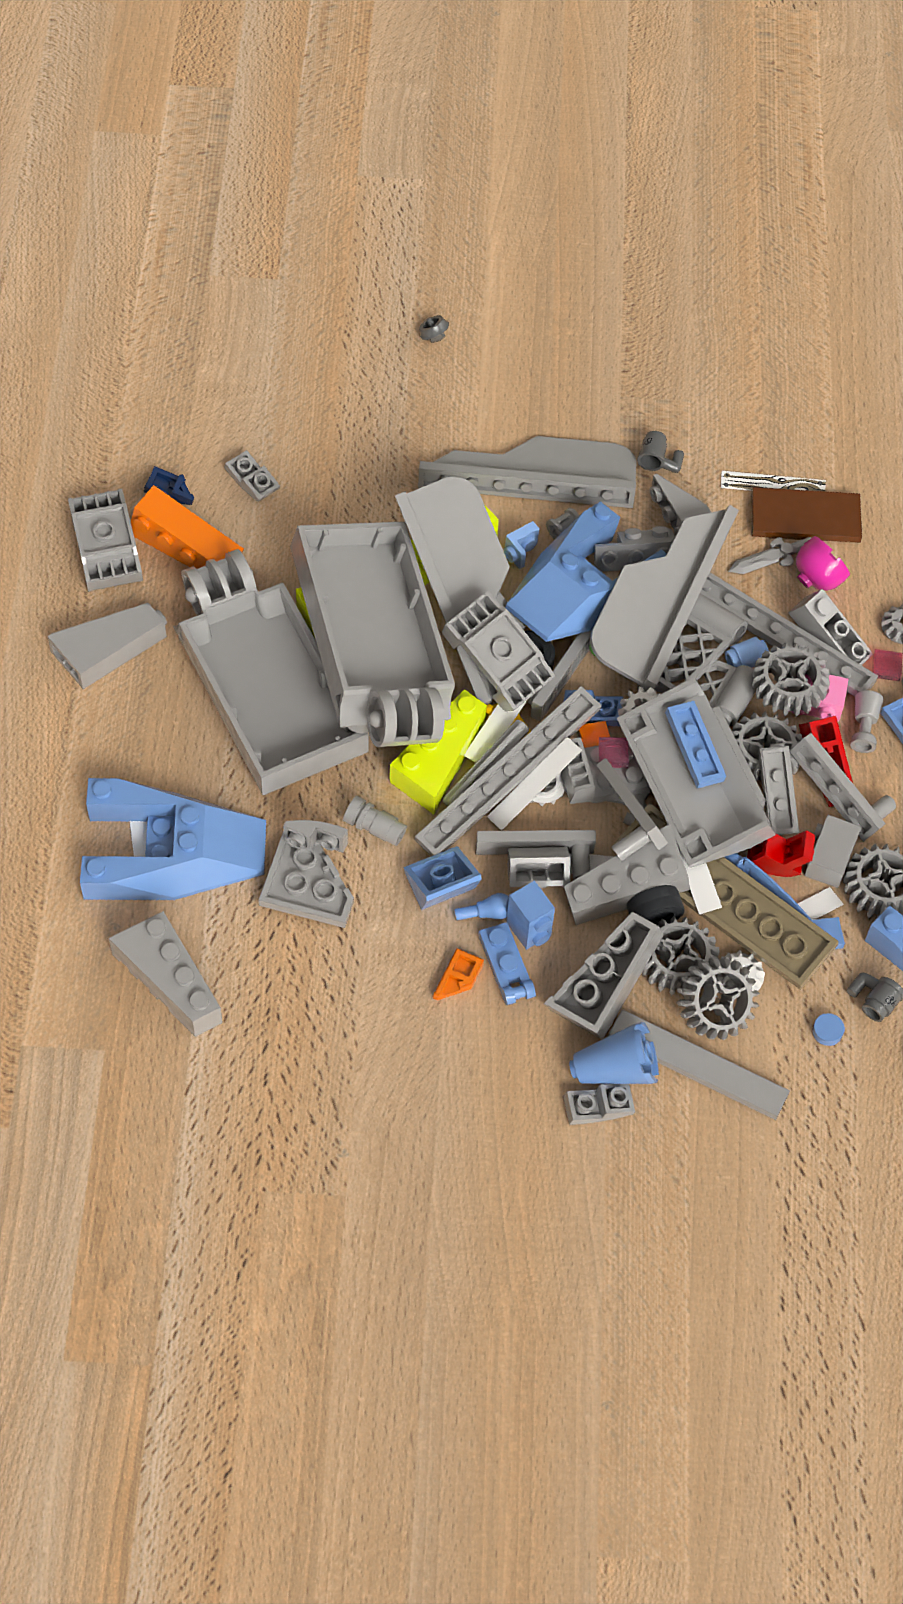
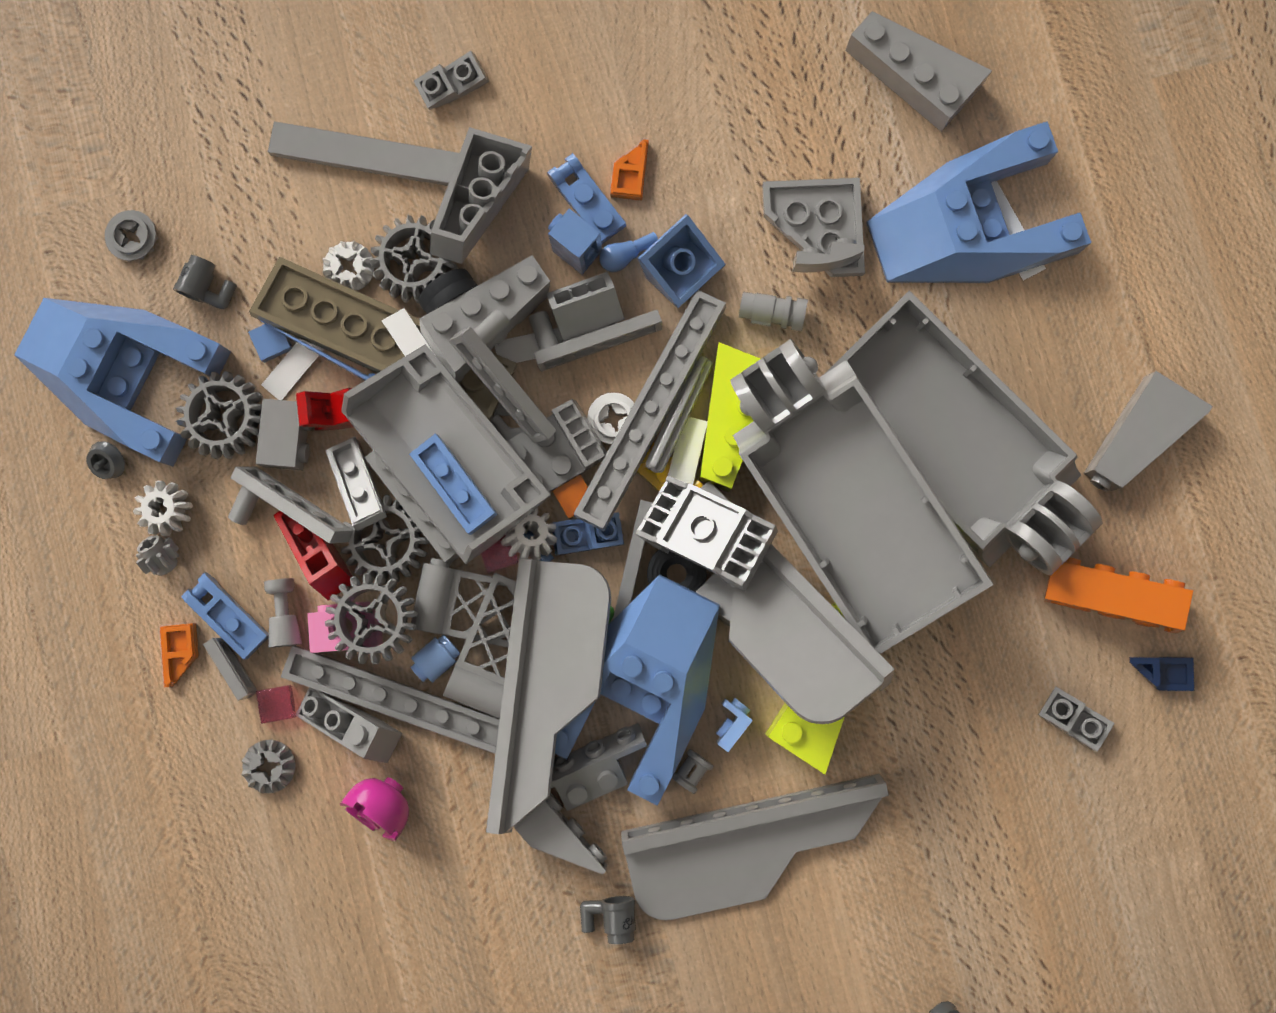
camera: 170 degrees right, 25 degrees up
(105, 540) = (1210, 563): light grey plate -> none
(534, 783) = (617, 408): white sticker -> none
(614, 750) = (546, 466): clear pink tile -> none
(618, 1059) = (440, 116): medium blue cone -> none
(730, 1018) = (359, 212): light grey gear -> none
(747, 481) = (465, 926): sticker -> none
(769, 556) = (442, 813): light grey sword -> none
(806, 514) = (414, 889): reddish brown tile -> none
(828, 1029) = (245, 234): medium blue tile -> none

